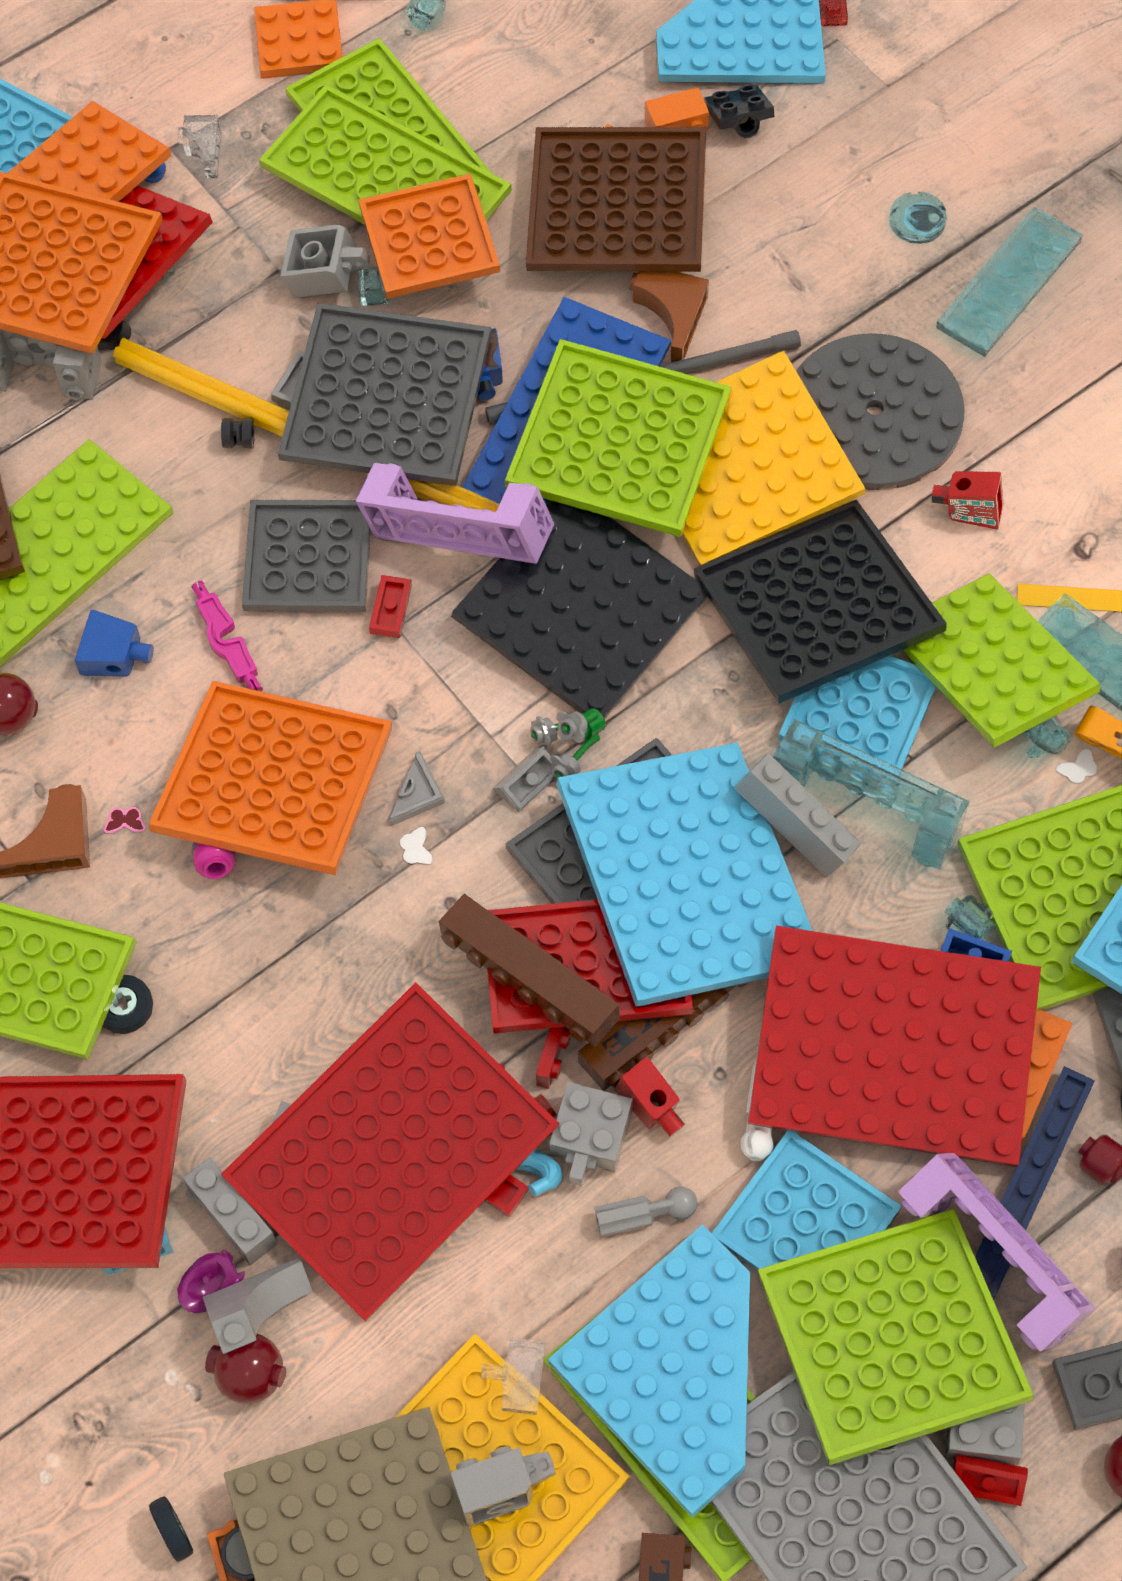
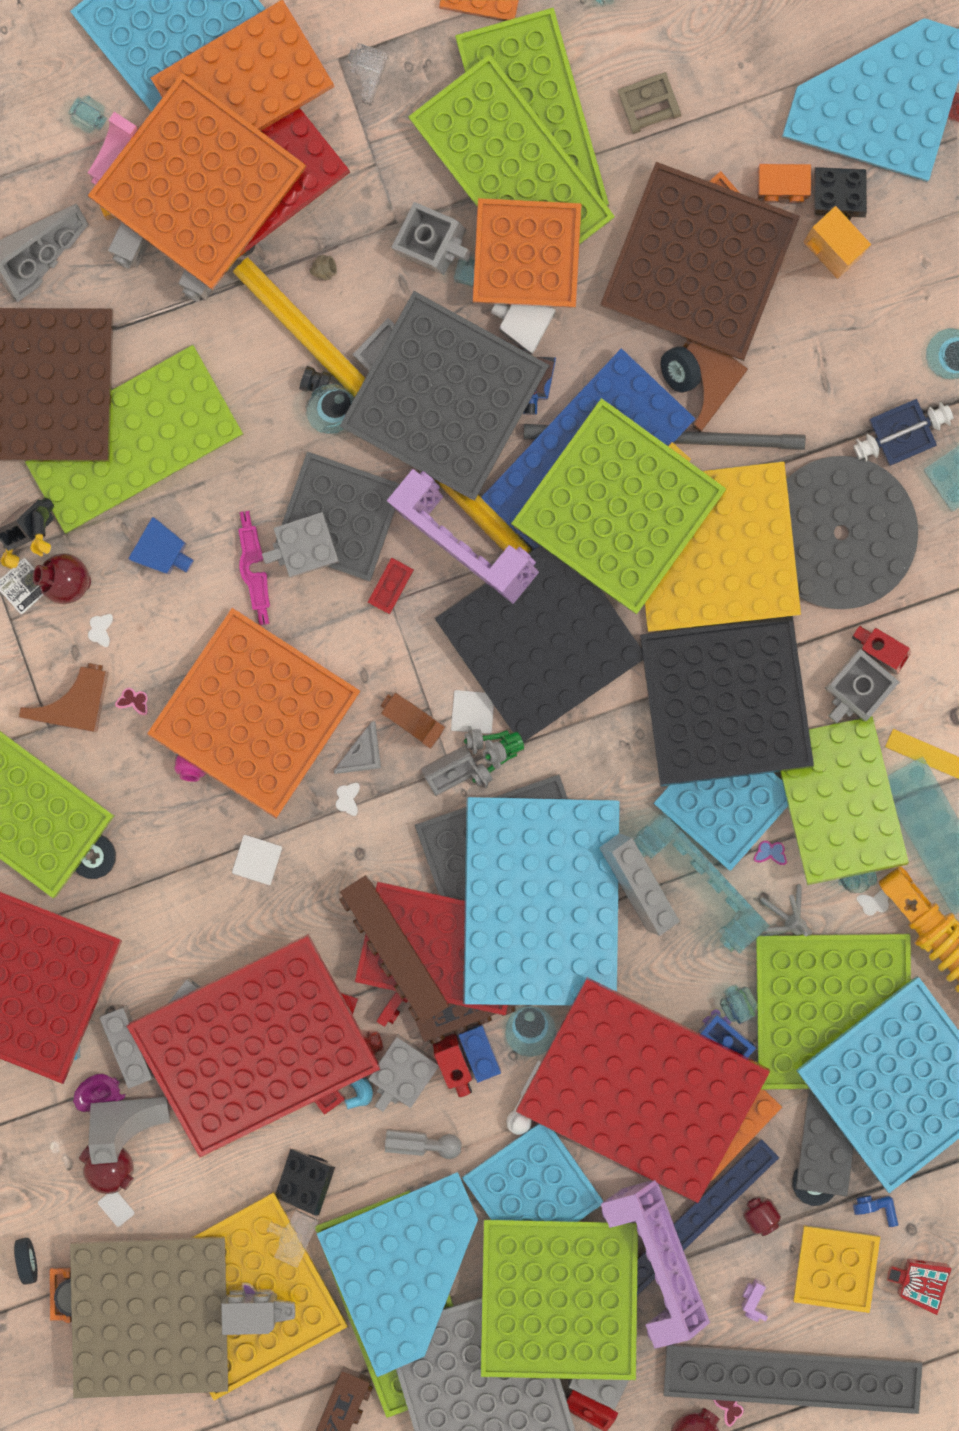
camera: 15 degrees right, 25 degrees up
(61, 756) = (98, 631): none -> white sticker
(212, 328) = (324, 267): none -> dark tan plate
(258, 450) = (328, 408): none -> tile
(274, 1429) = (116, 1208): none -> white sticker
(276, 583) = (303, 546): none -> light grey hinge
(327, 949) = (257, 860): none -> white sticker
(450, 303) = (524, 323): none -> white torso
(468, 730) = (412, 719): none -> dark orange arch
(505, 84) = (646, 94): none -> dark tan plate
(511, 1304) = (305, 1181): none -> black plate
(526, 705) = (472, 710): none -> white sticker
(624, 305) = (674, 362): none -> black bush
(681, 1074) = (480, 1053): none -> blue brick
(729, 1037) = (530, 1031): none -> clear light blue tile
(754, 129) = (836, 242): none -> light orange brick
(899, 296) = (903, 432): none -> dark blue plate
(932, 751) = (773, 851): none -> medium blue sticker
(962, 541) = (859, 687): none -> light grey hinge
(997, 811) = (794, 922): none -> light grey plant

